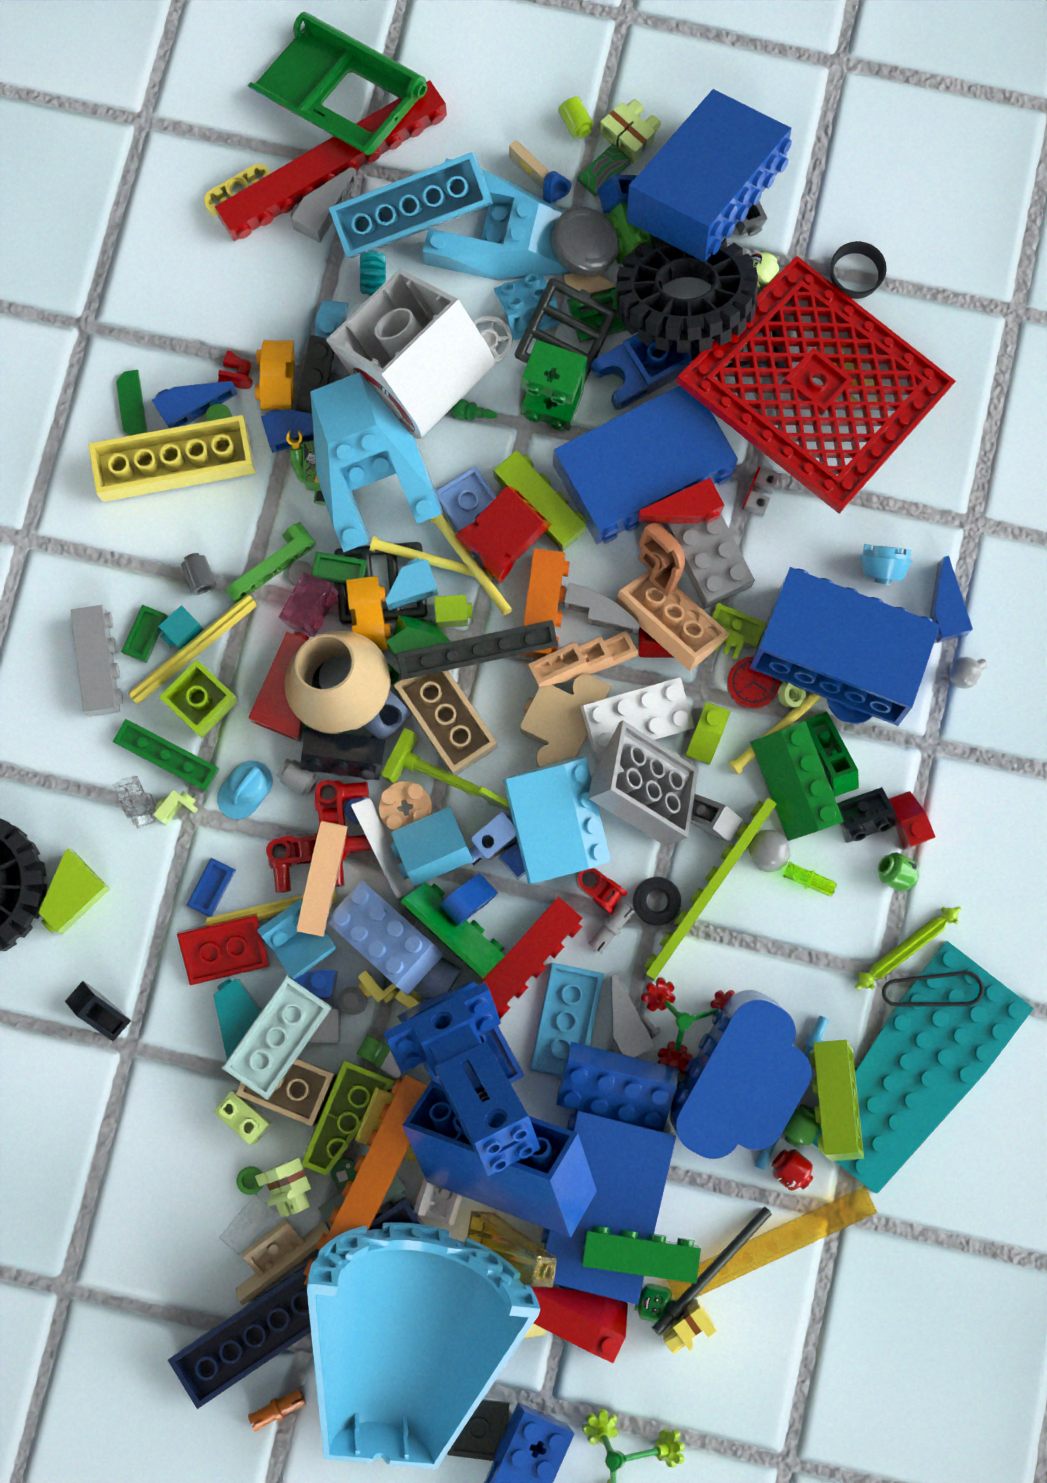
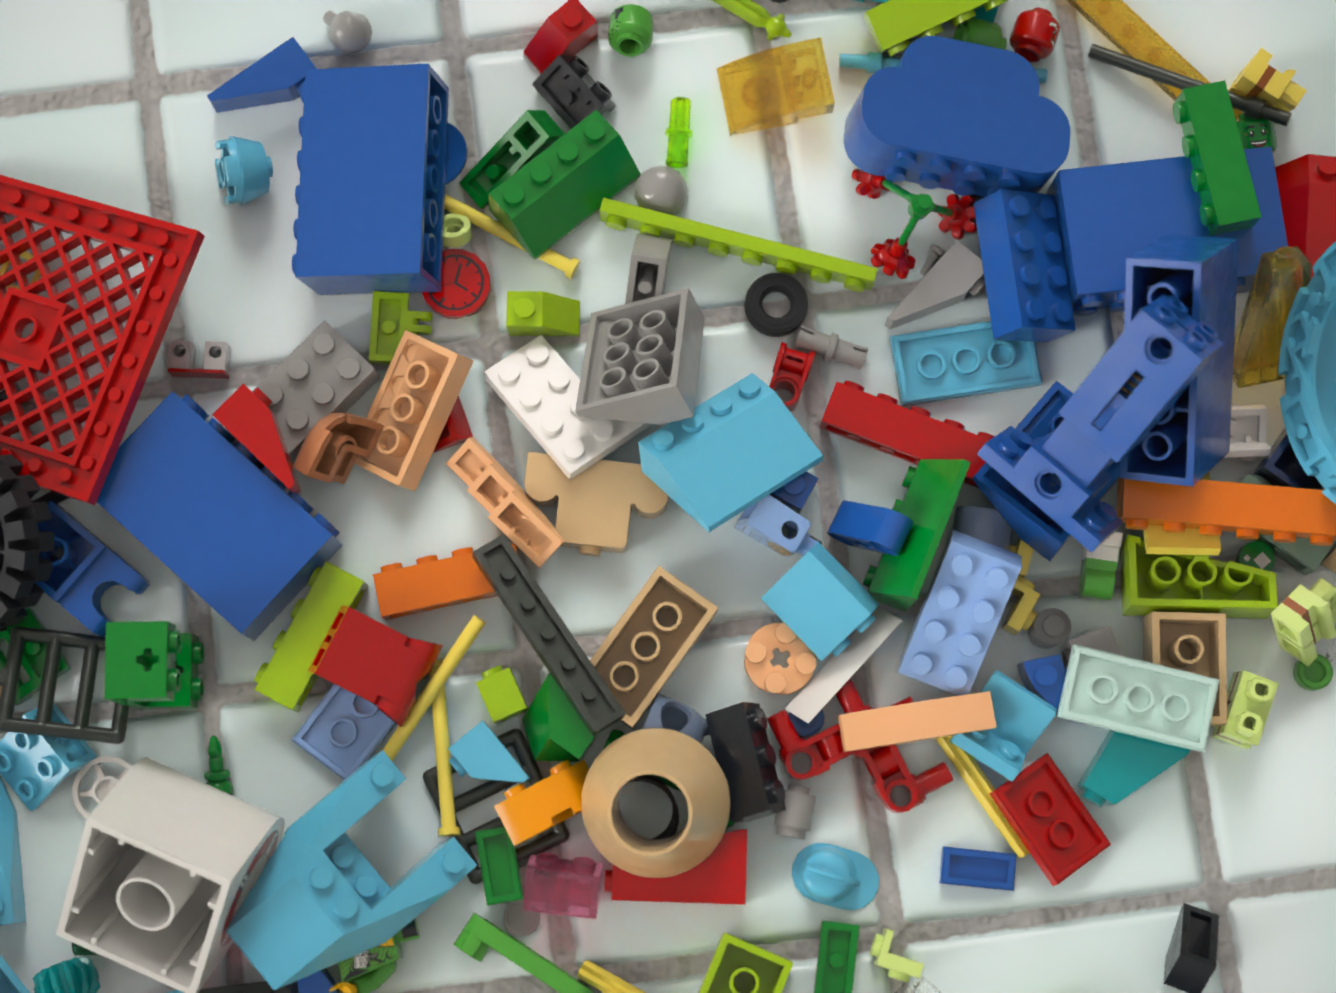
camera: 110 degrees left, 0 degrees up
(404, 758) = (718, 681): lime piece -> none
(600, 609) = (430, 506): light grey slope -> none
(818, 961) = (776, 87): none -> clear yellow slope

